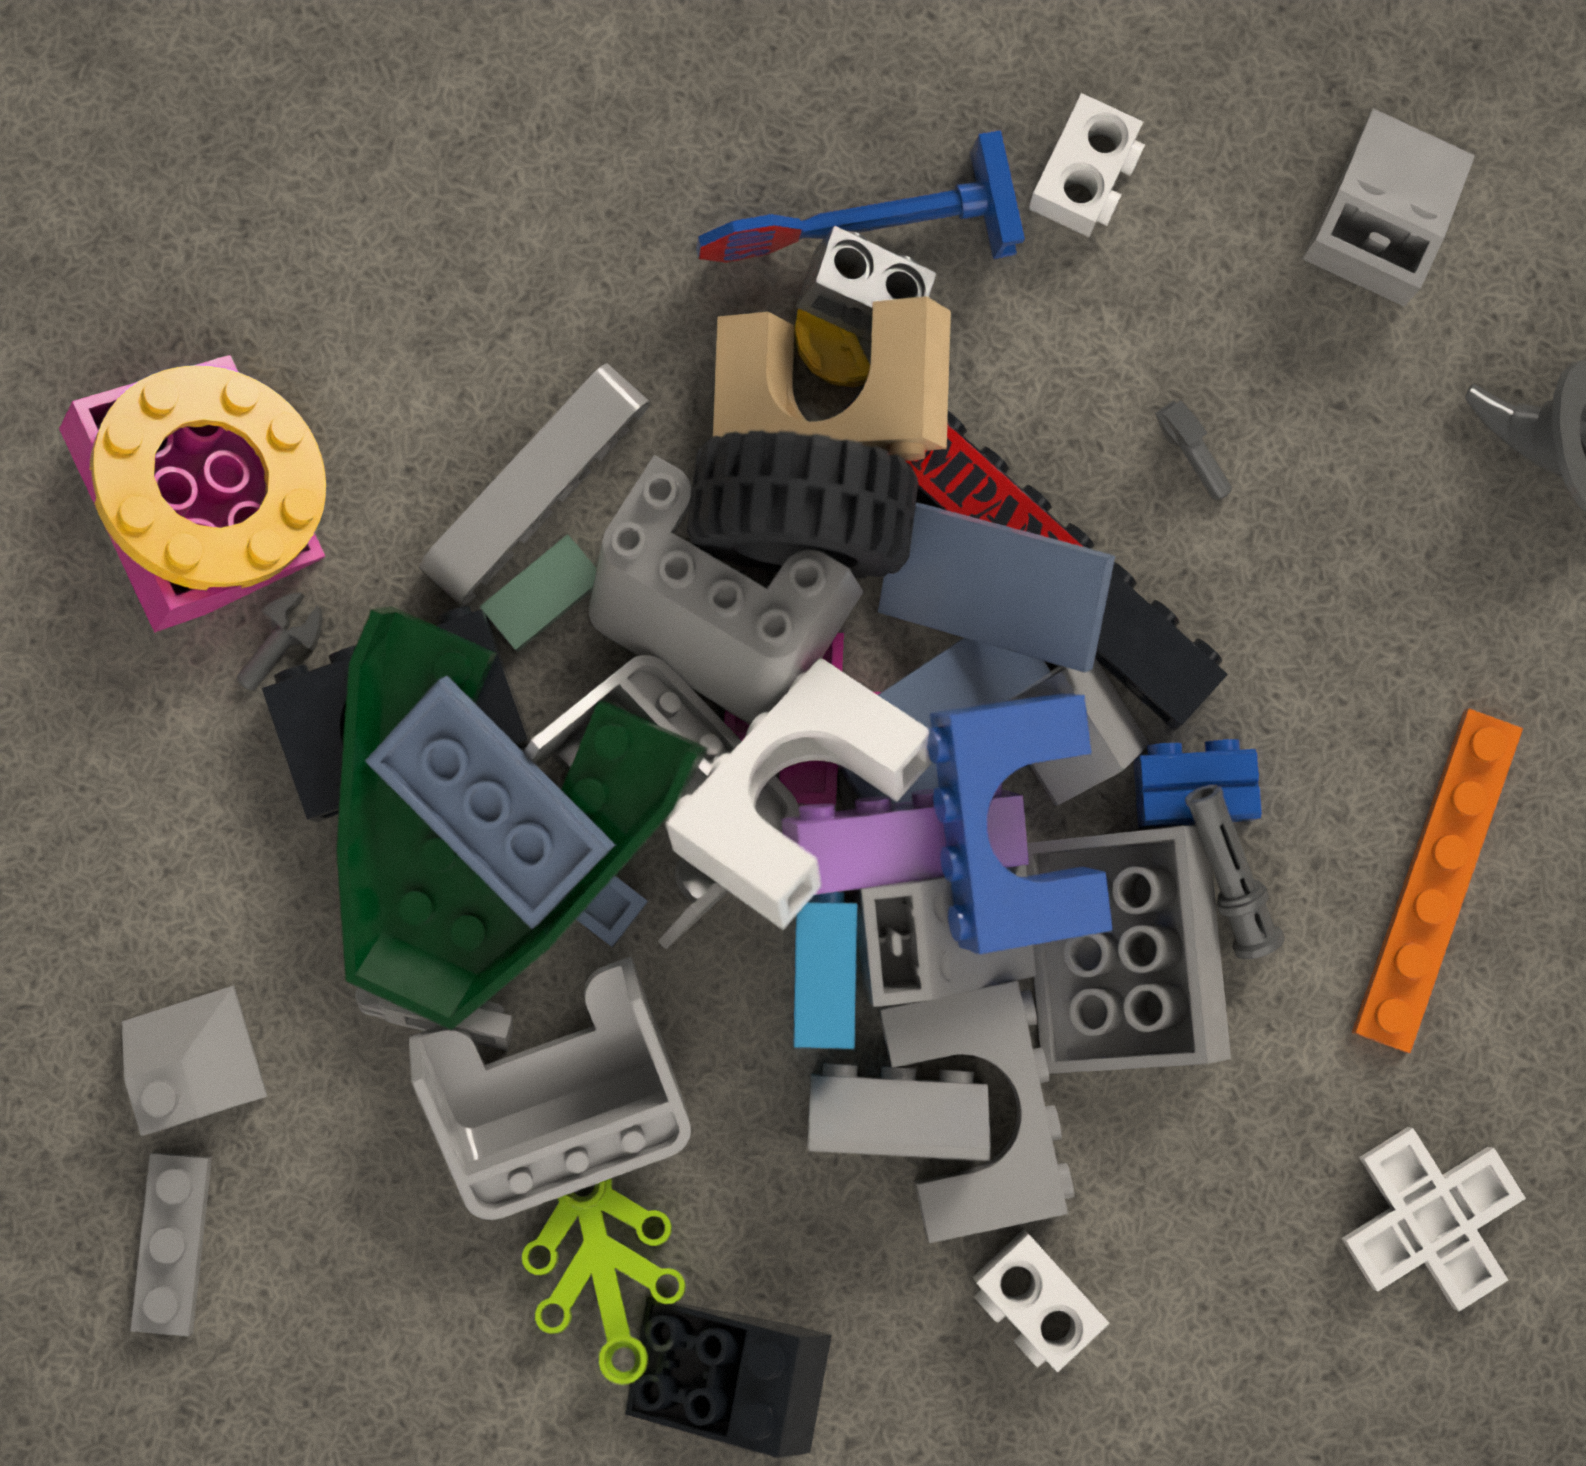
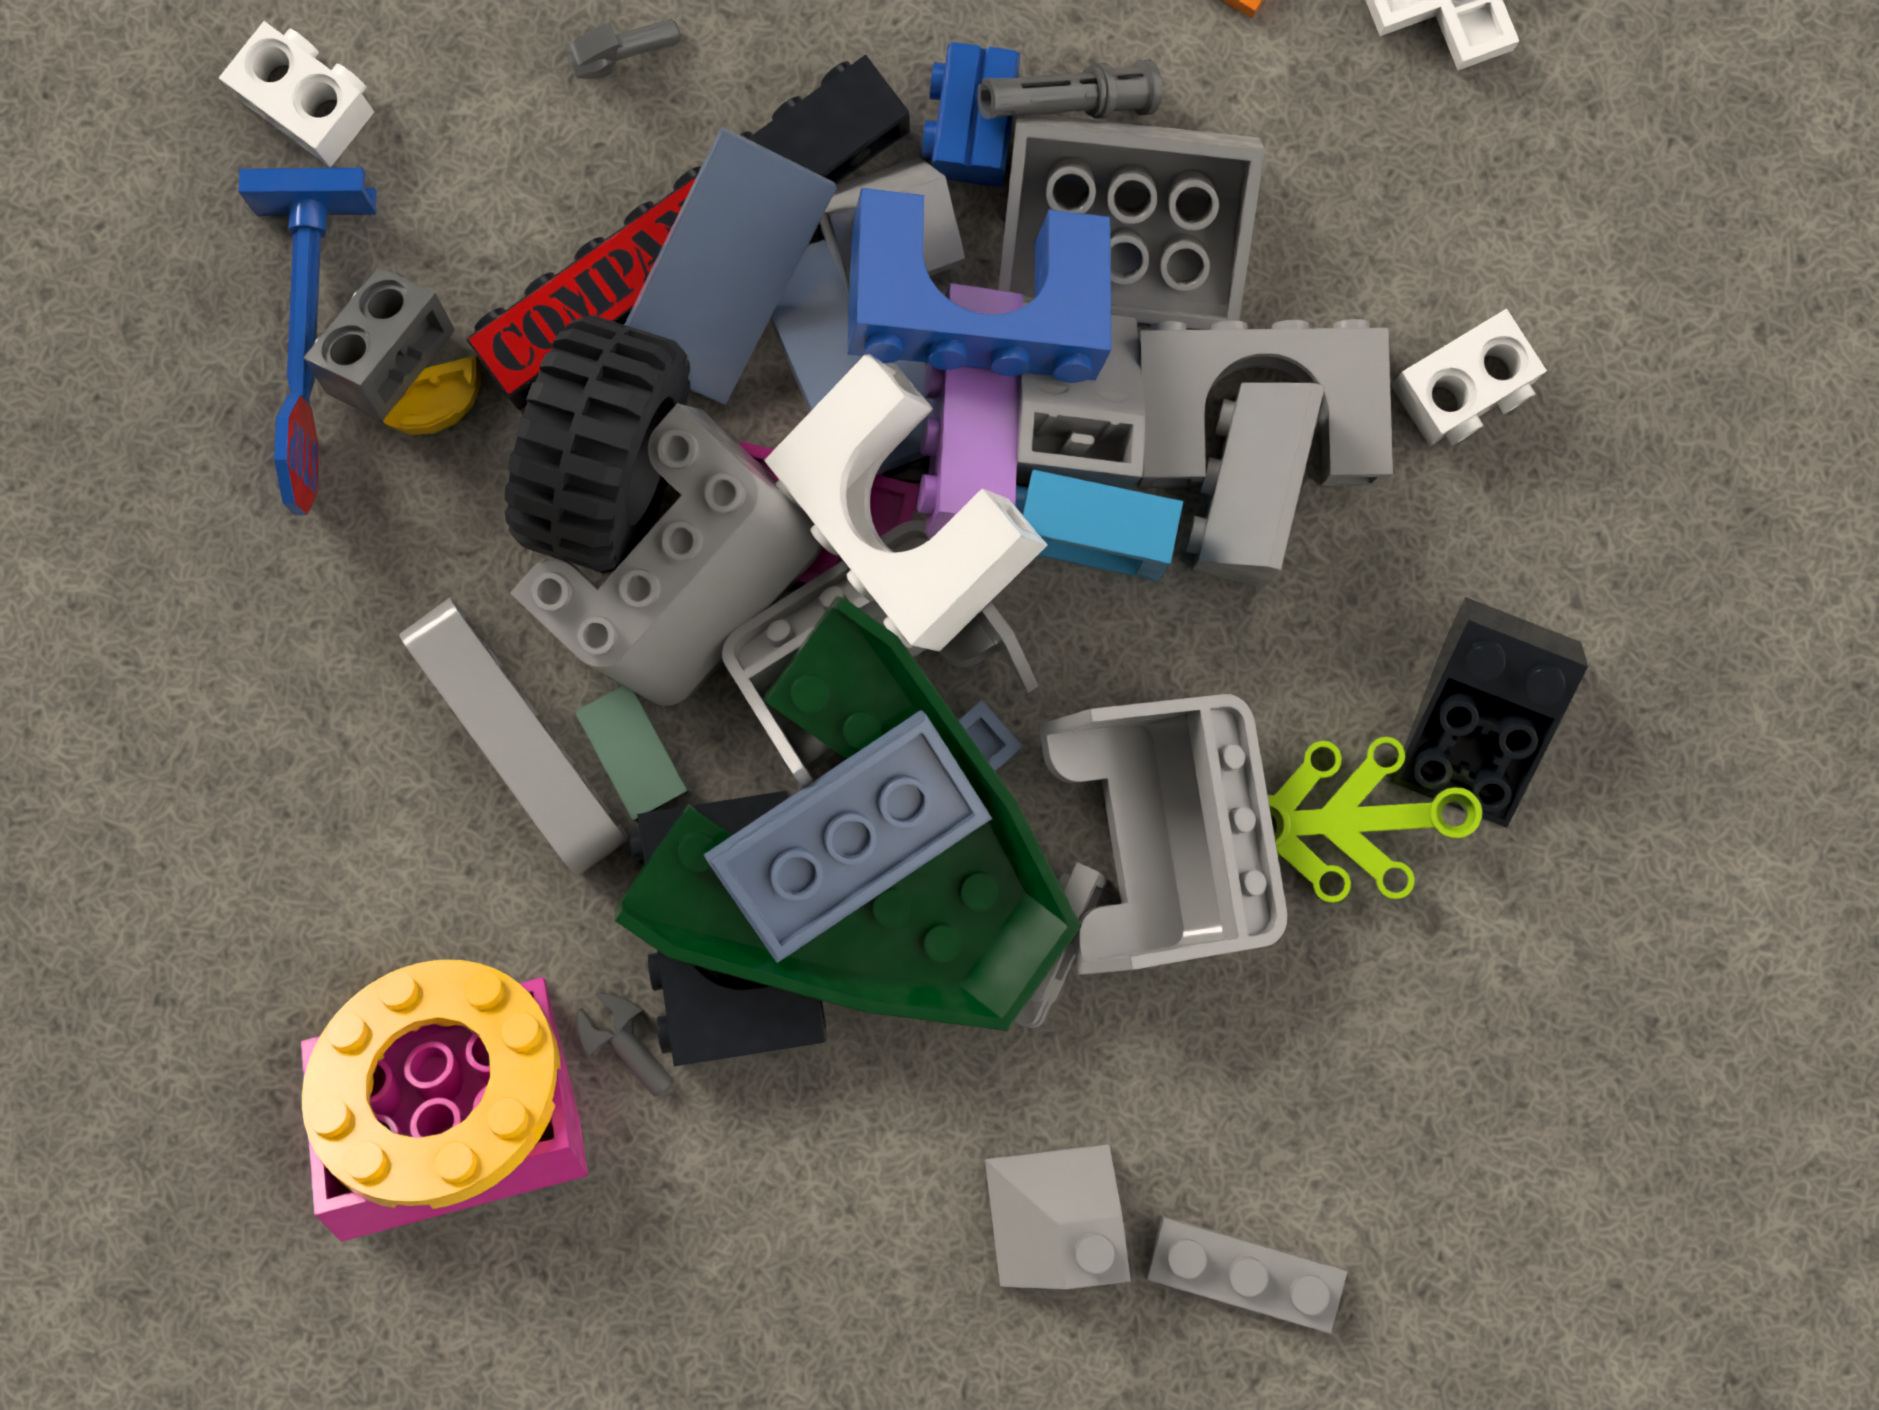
camera: 75 degrees left, 0 degrees up
(896, 411) = (512, 321): tan arch -> none

